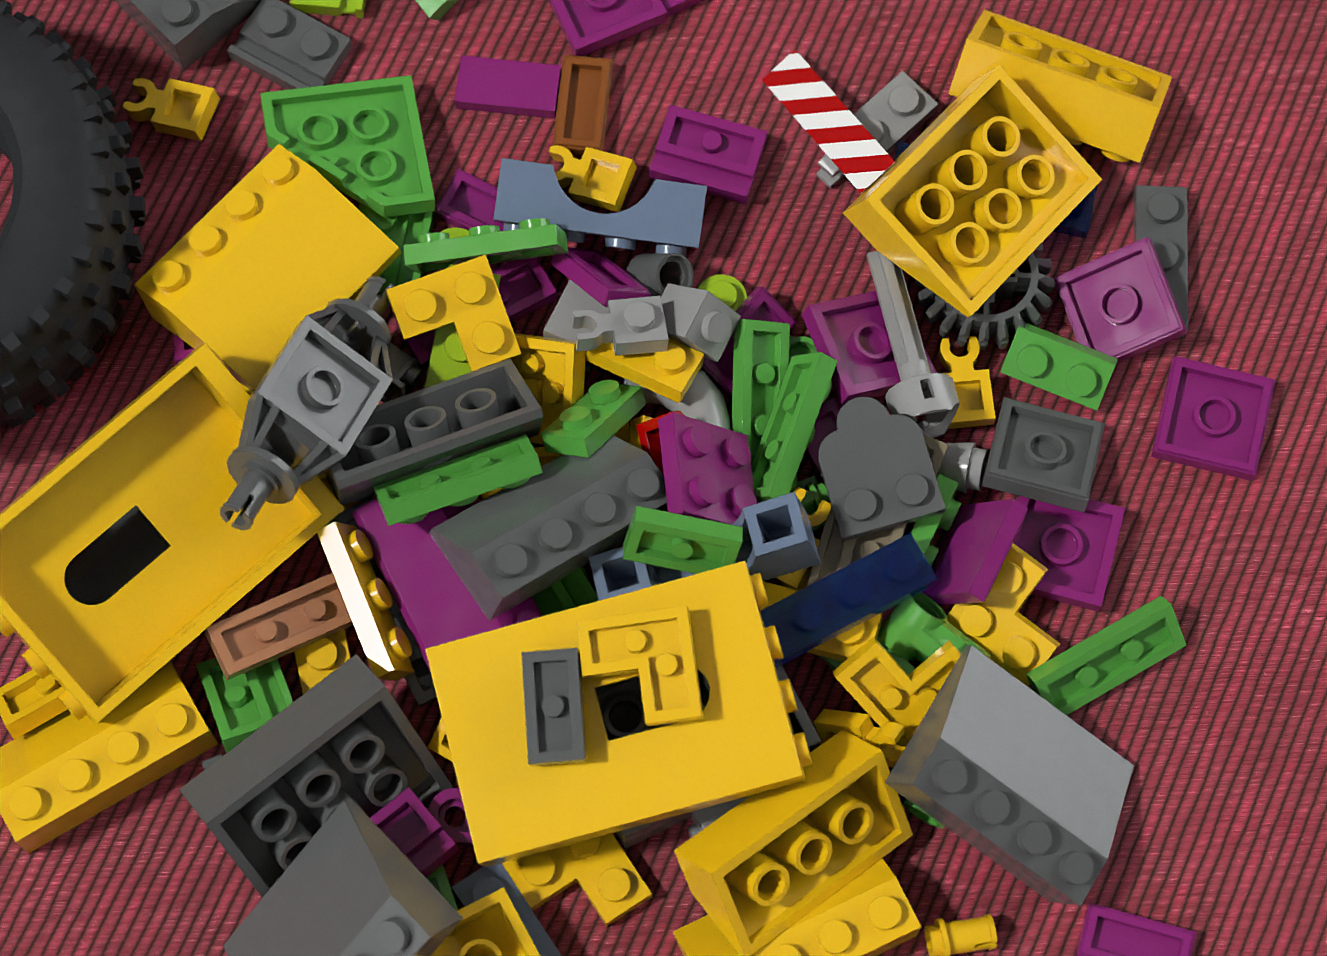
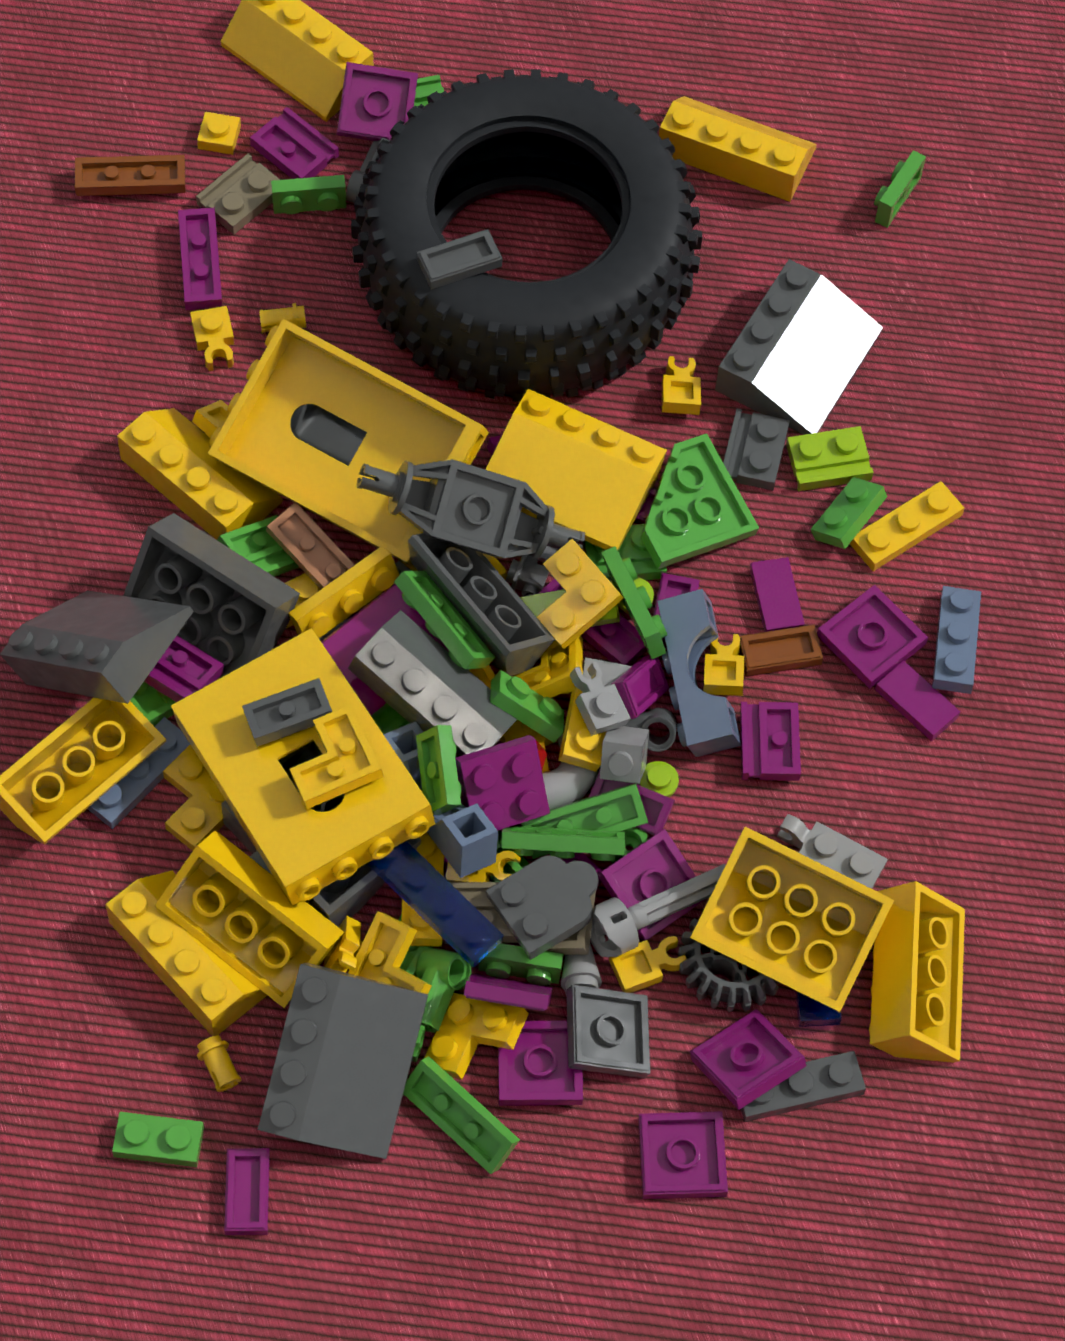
camera: 70 degrees right, 10 degrees down
(828, 121) = (820, 808): sticker -> none
(1059, 365) = (684, 1027): bright green plate -> none

